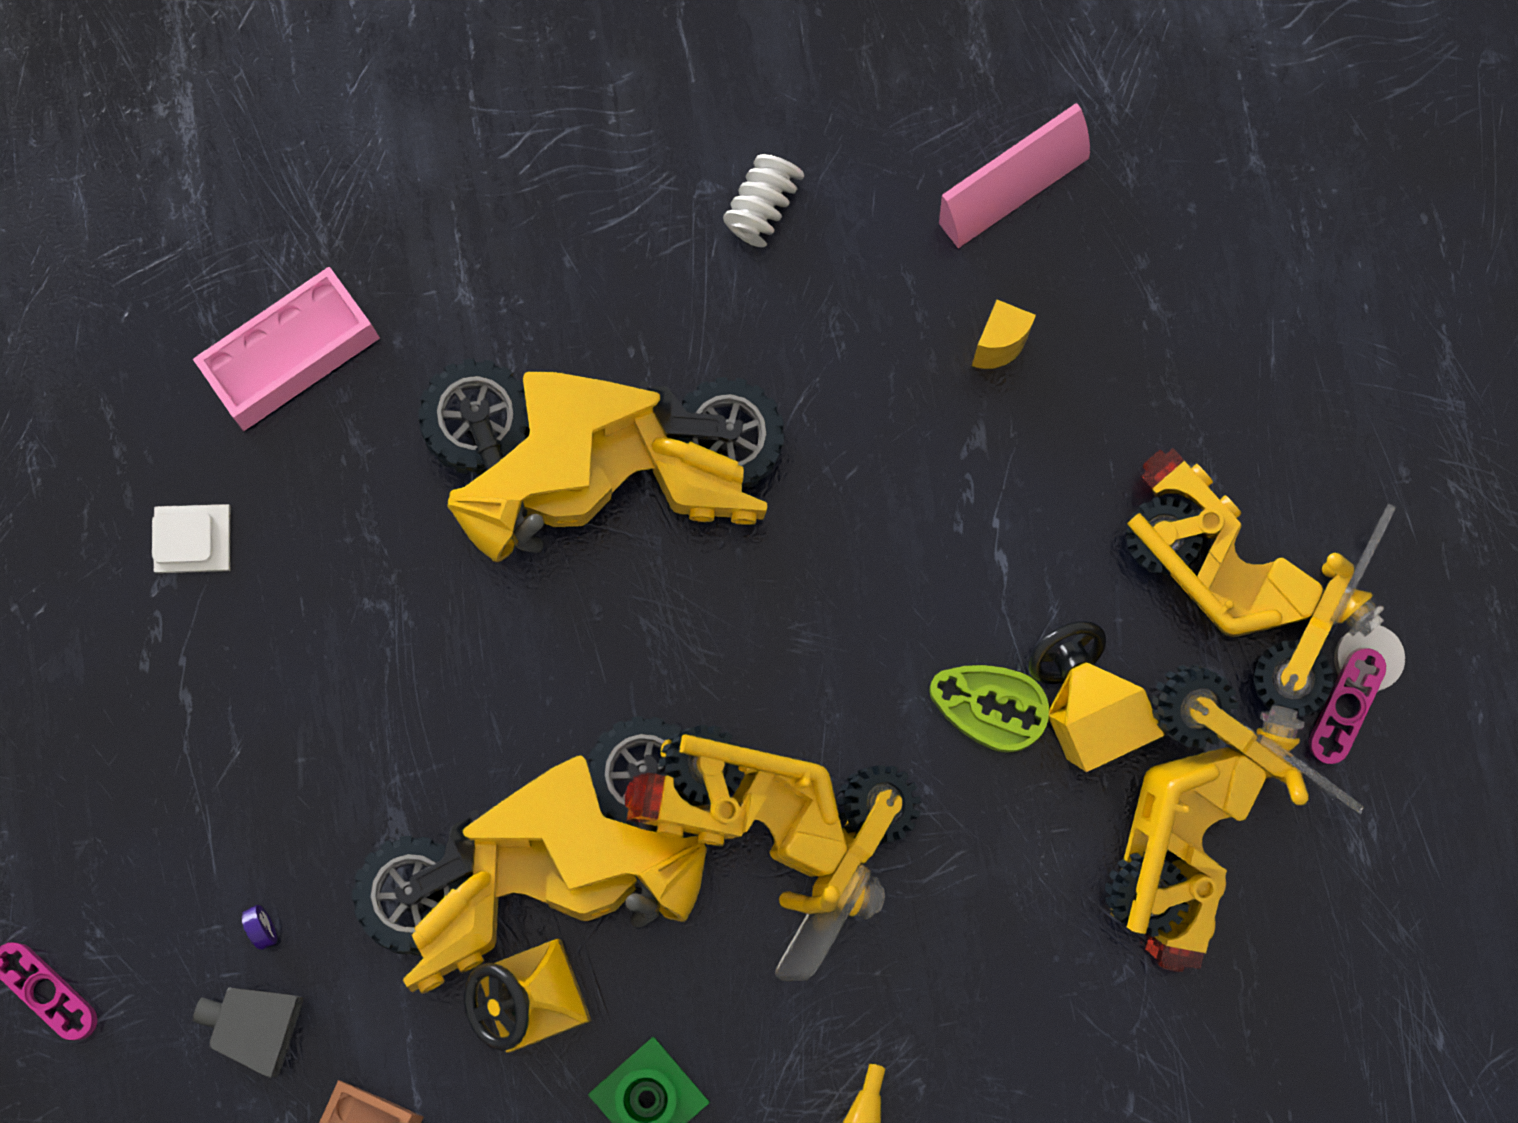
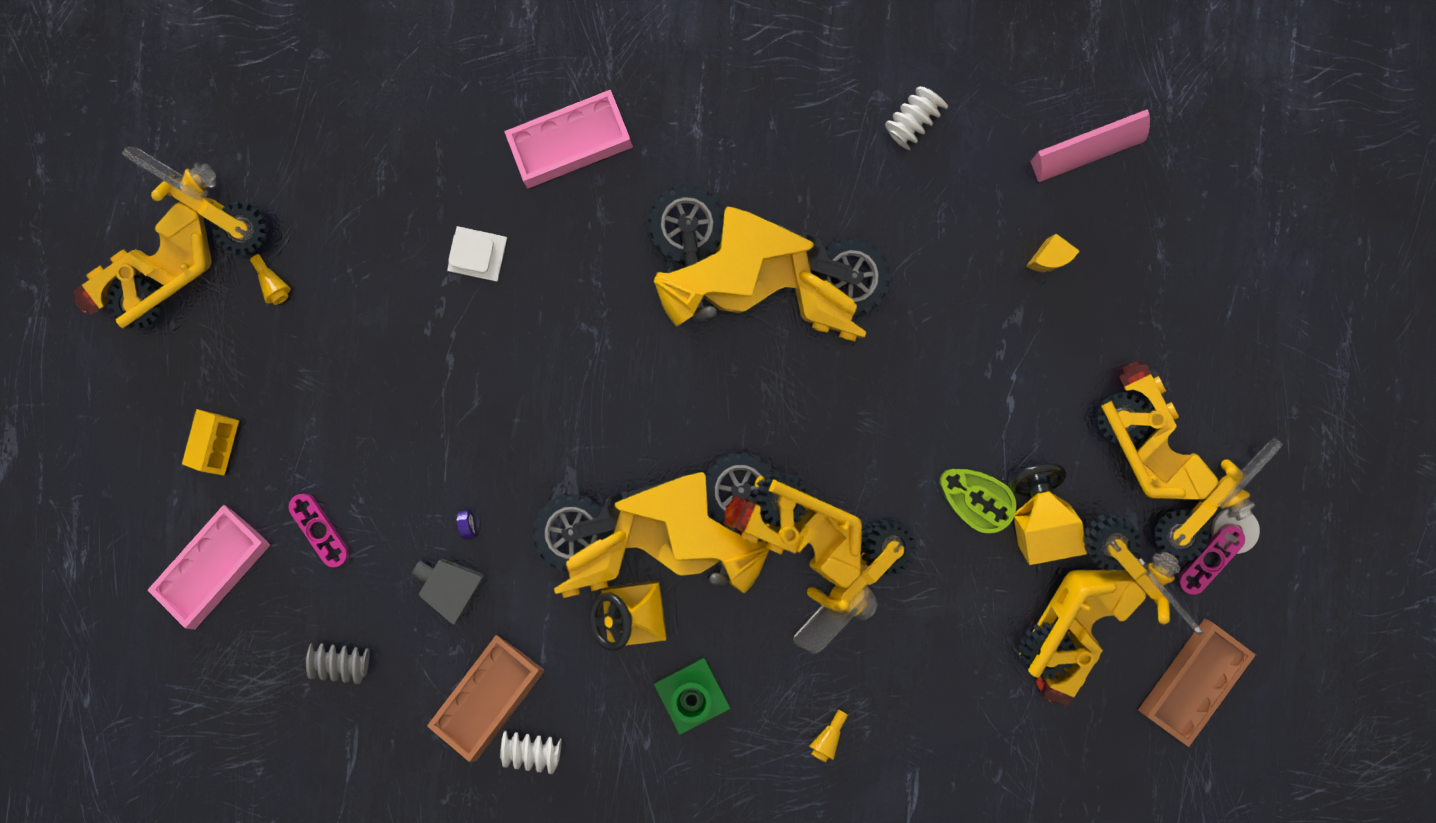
camera: 15 degrees right, 10 degrees up
(1378, 890) = (1196, 682): none -> nougat slope

